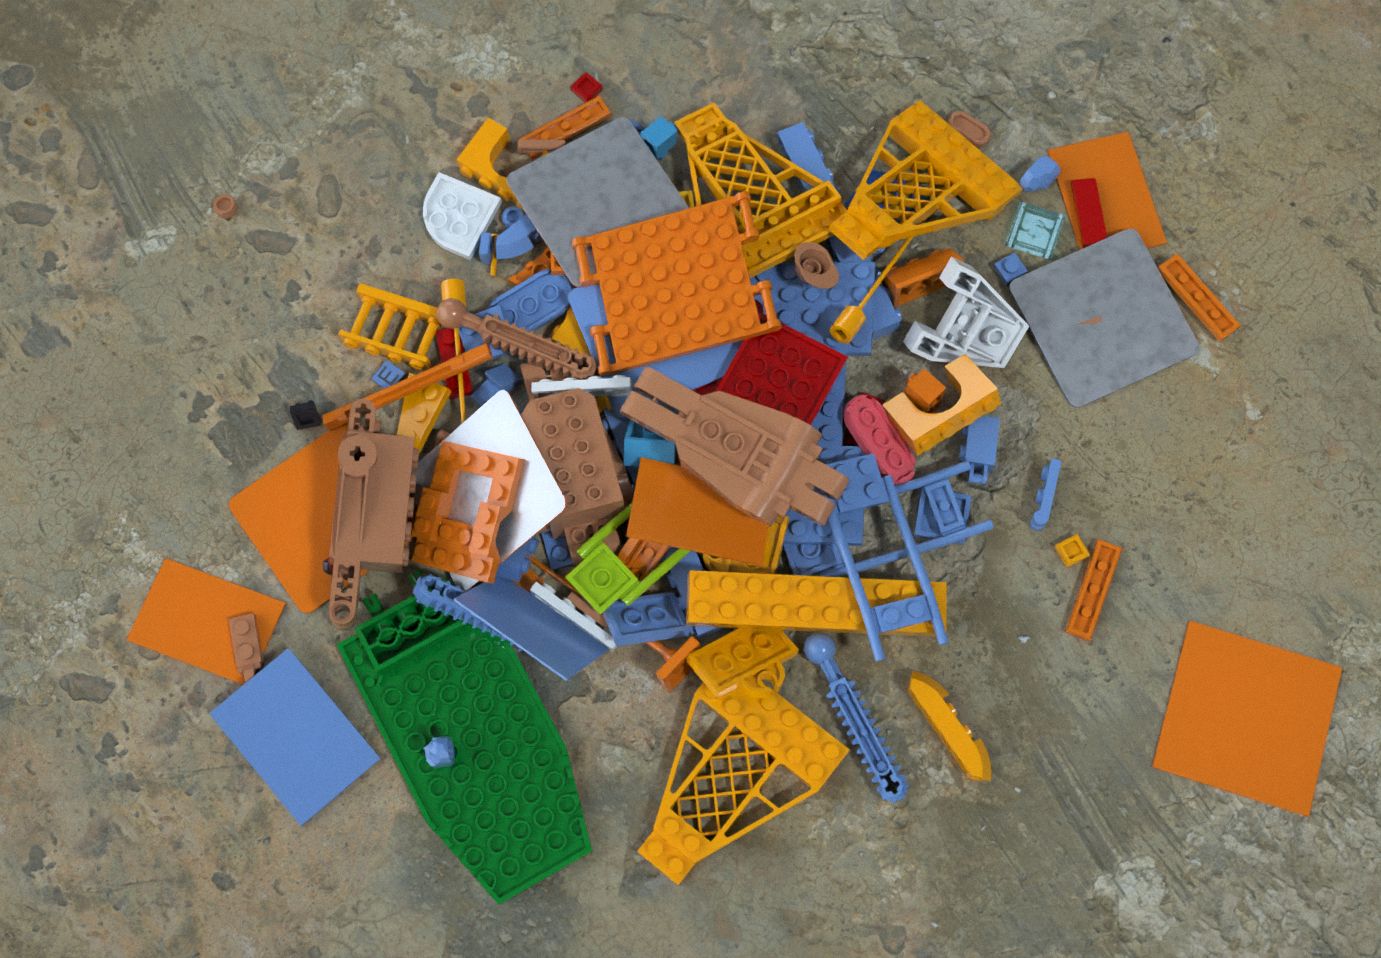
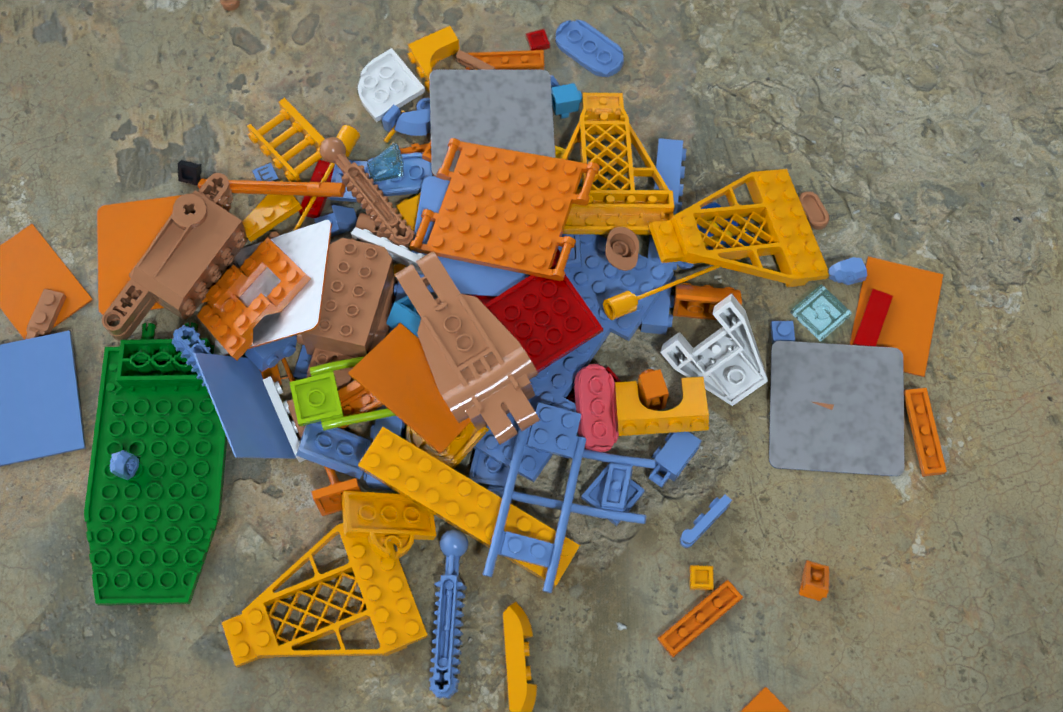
camera: 25 degrees right, 5 degrees down
(517, 297) = (387, 164): none -> clear light blue slope
(645, 69) = (589, 48): none -> medium blue tile
(1179, 496) = (815, 581): none -> orange slope

